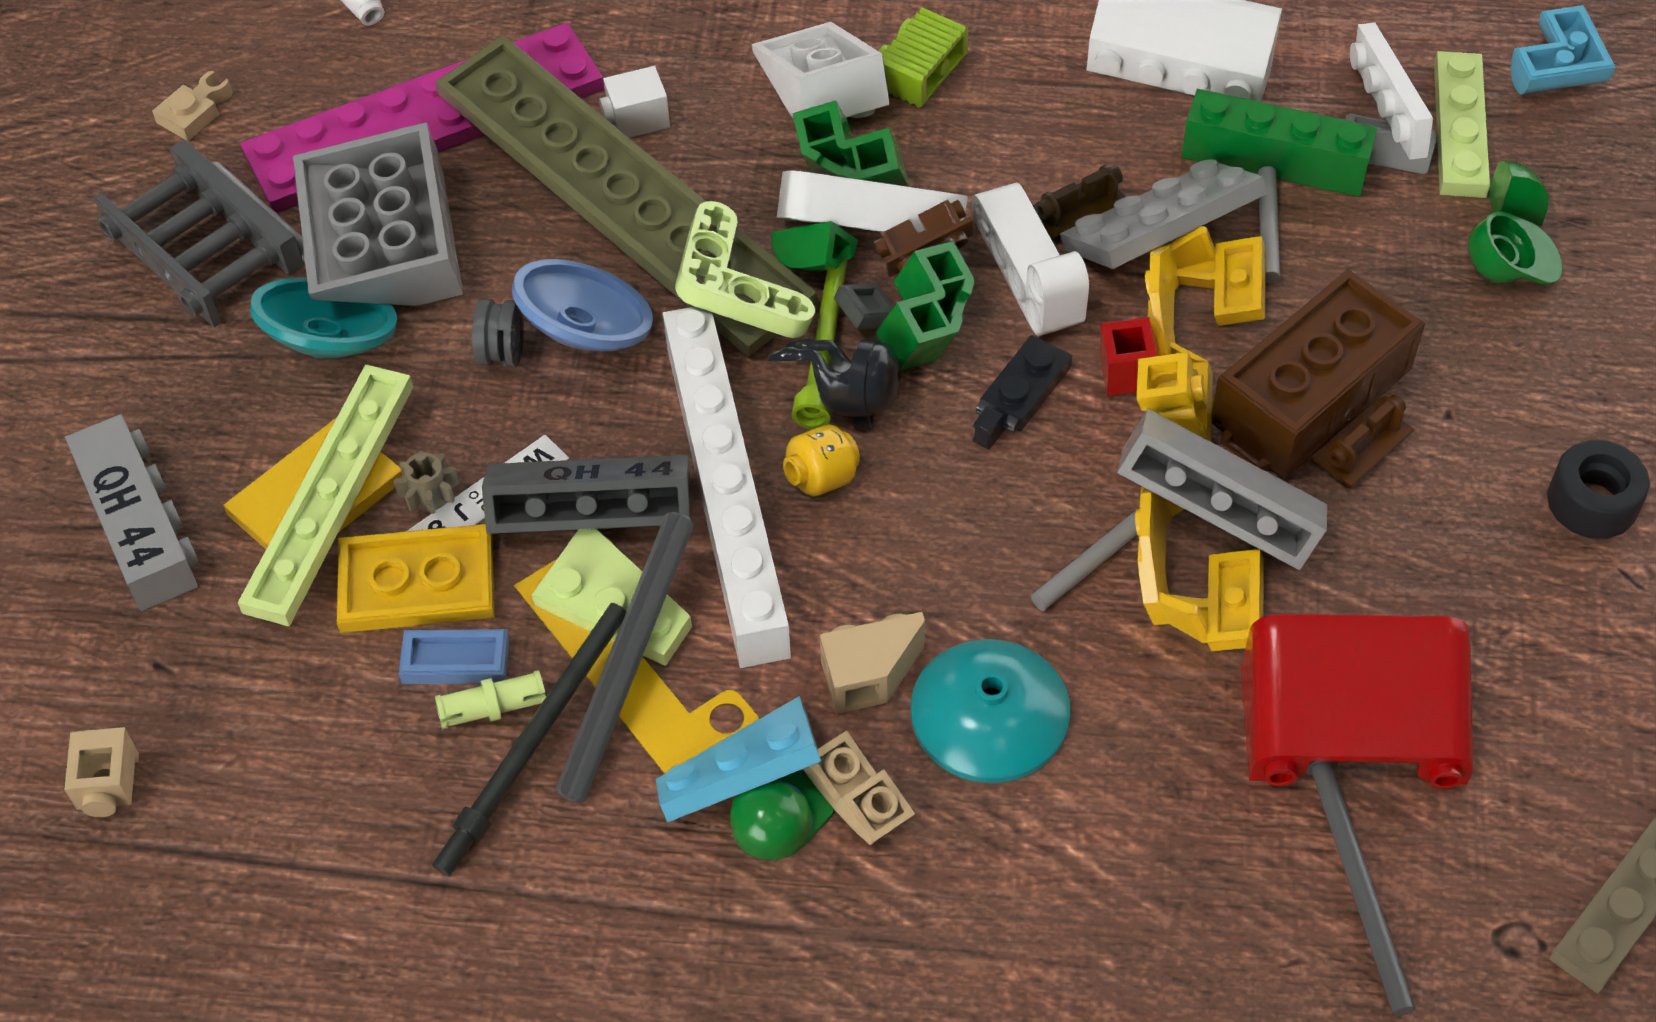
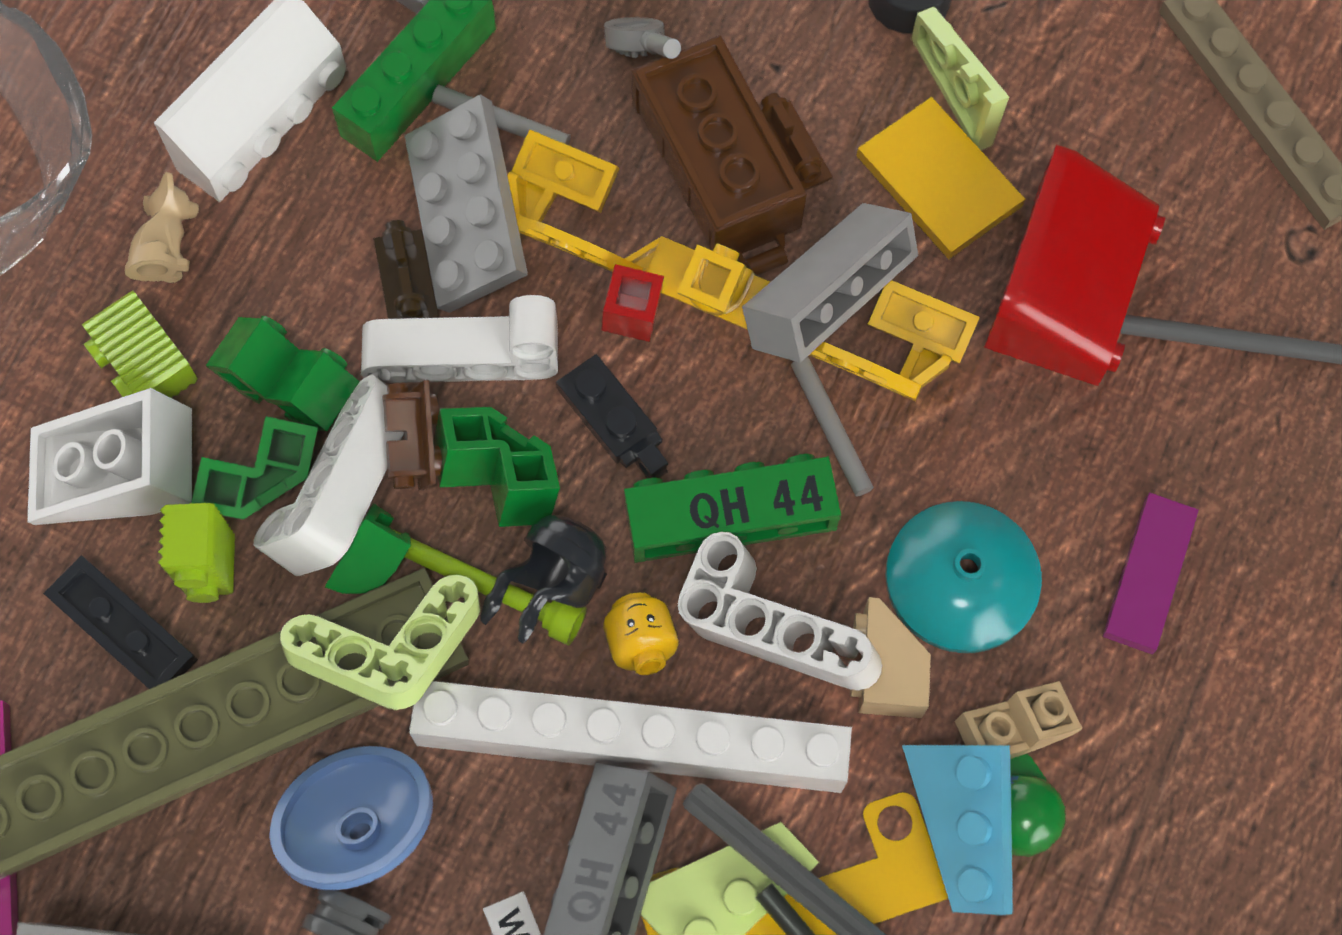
camera: 75 degrees left, 15 degrees up
(635, 102) = (64, 675): white brick -> none
(691, 120) = (119, 625): none -> black plate
(762, 135) = (197, 550): none -> lime brick
(864, 304) = (455, 524): dark grey tile -> none
(867, 509) = (782, 623): none -> white beam
(946, 145) = (268, 367): none -> green brick
(970, 496) = (750, 502): none -> green brick
(1022, 33) = (156, 245): none -> tan animal
(1064, 871) = (1150, 573): none -> magenta tile
(1401, 281) = (638, 36): none -> light grey piece
(1404, 566) = (940, 177): none -> yellow tile
(1514, 553) = (961, 77): none -> yellowish green wing

